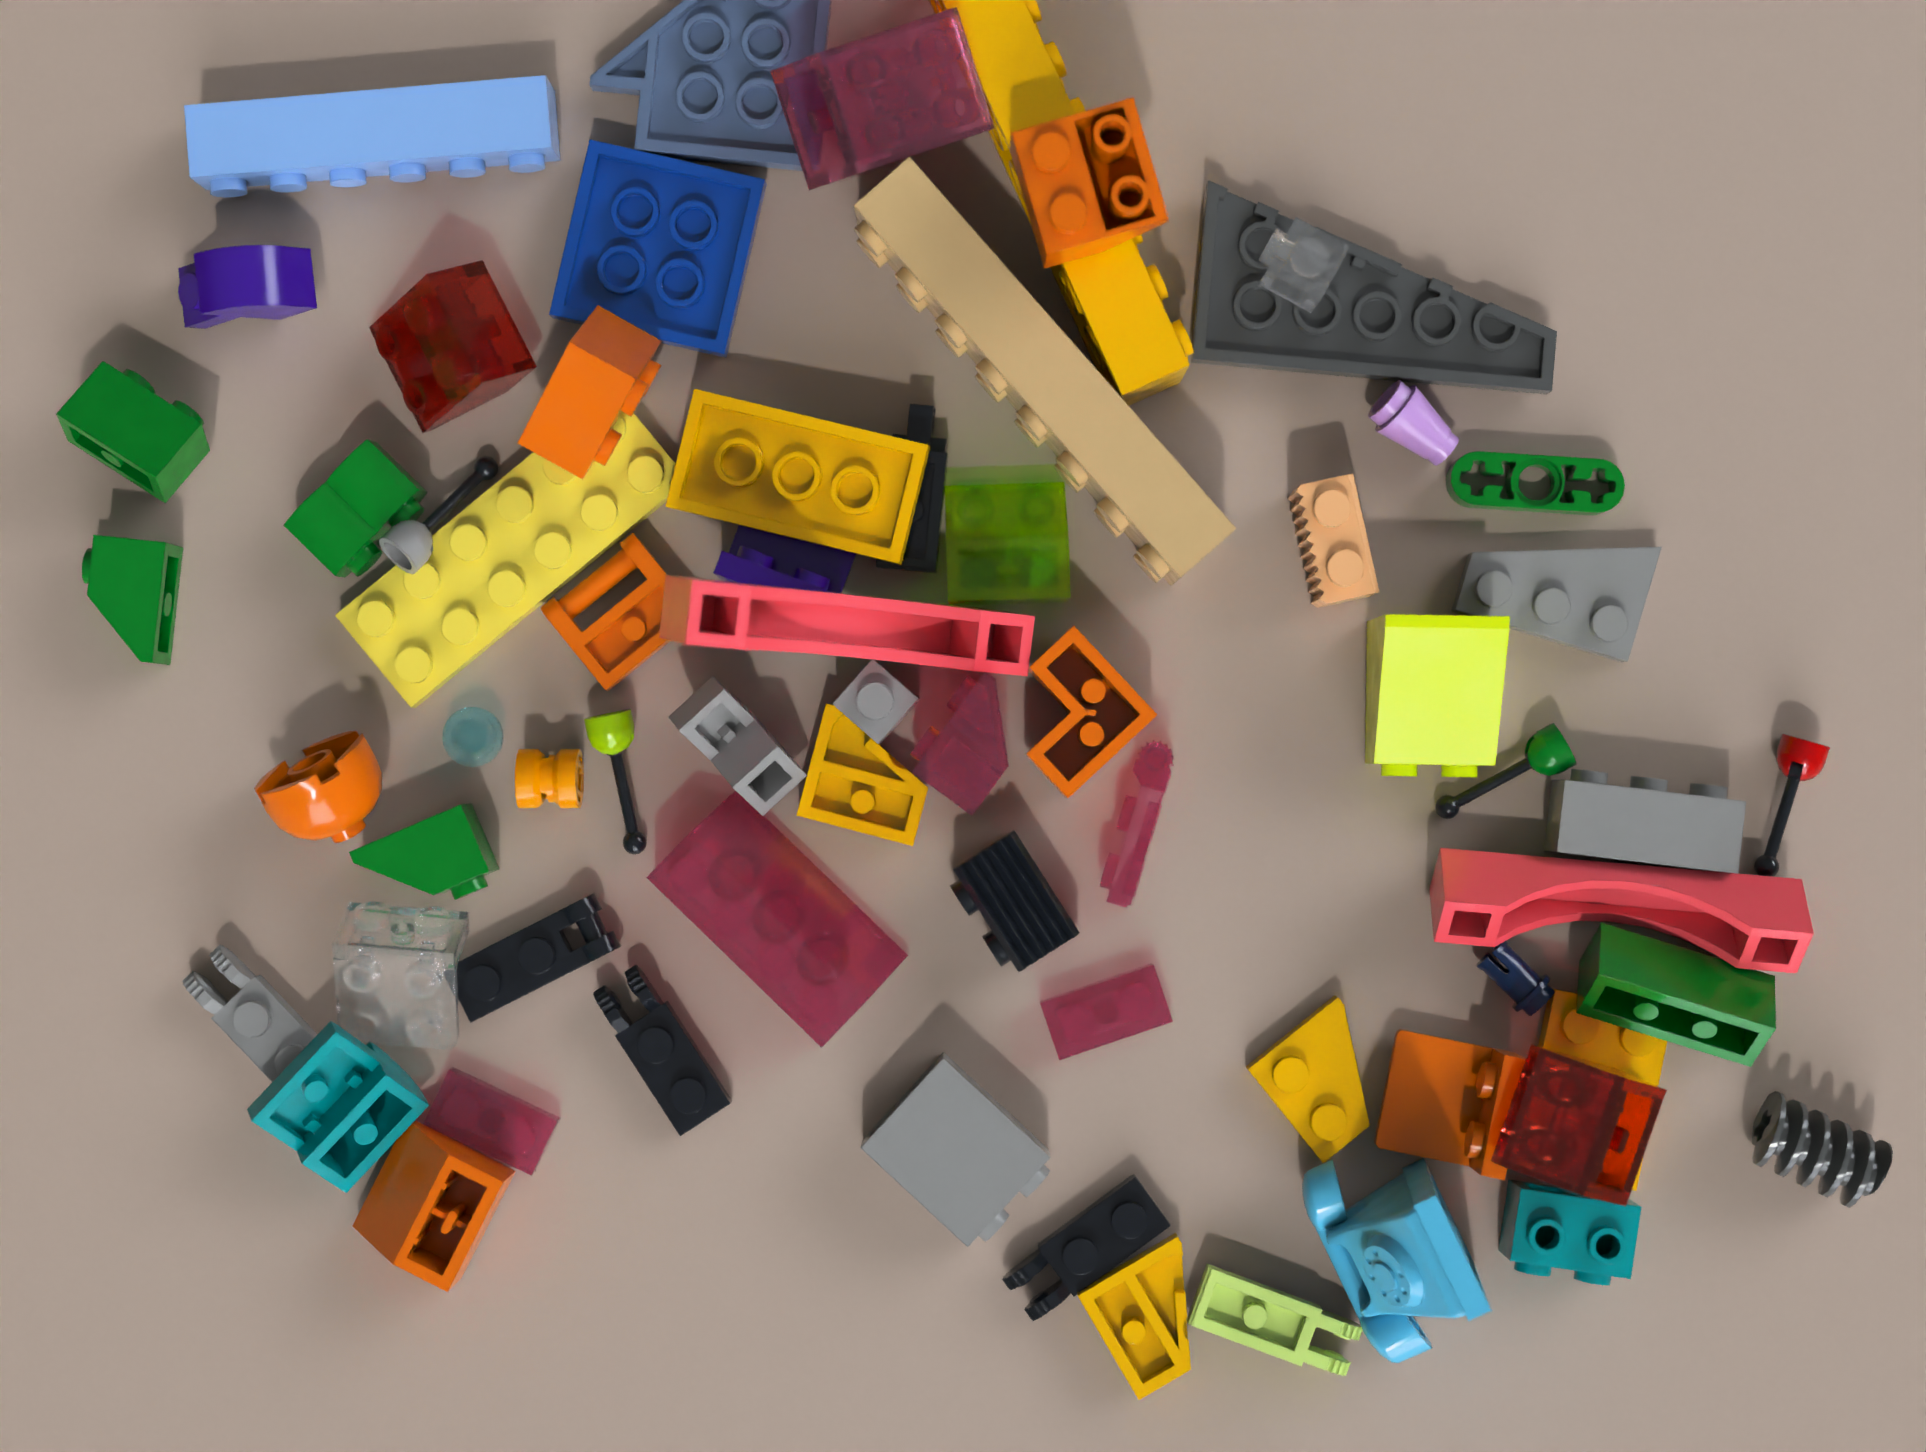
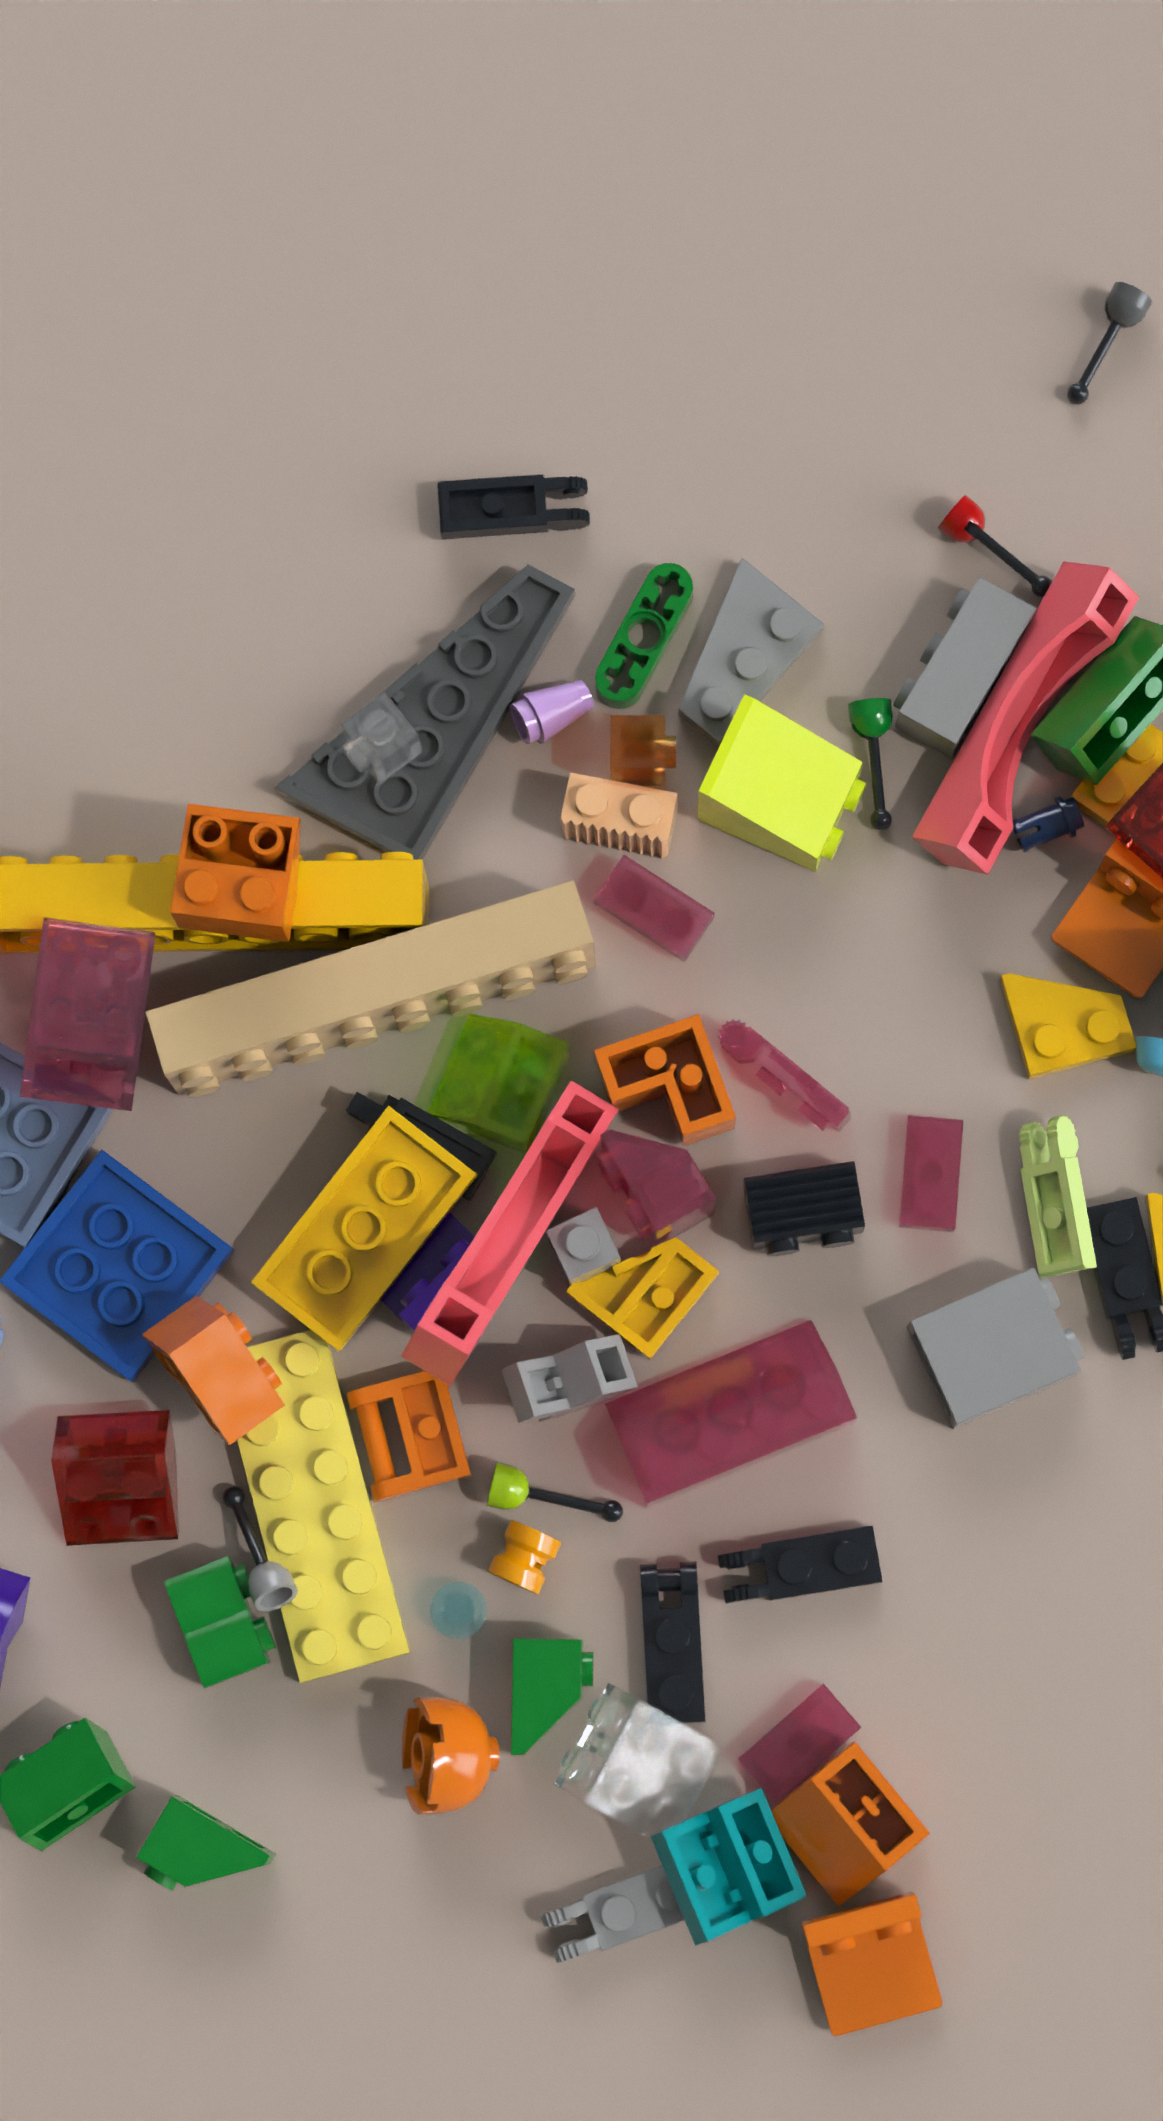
camera: 65 degrees left, 10 degrees down
(313, 1280) = (872, 1964): none -> orange bracket
(1133, 1147) = (1055, 1198): none -> yellowish green hinge
(1253, 619) = (654, 908): none -> clear pink plate
(1409, 534) = (640, 749): none -> clear orange brick
(1611, 282) = (508, 506): none -> black hinge

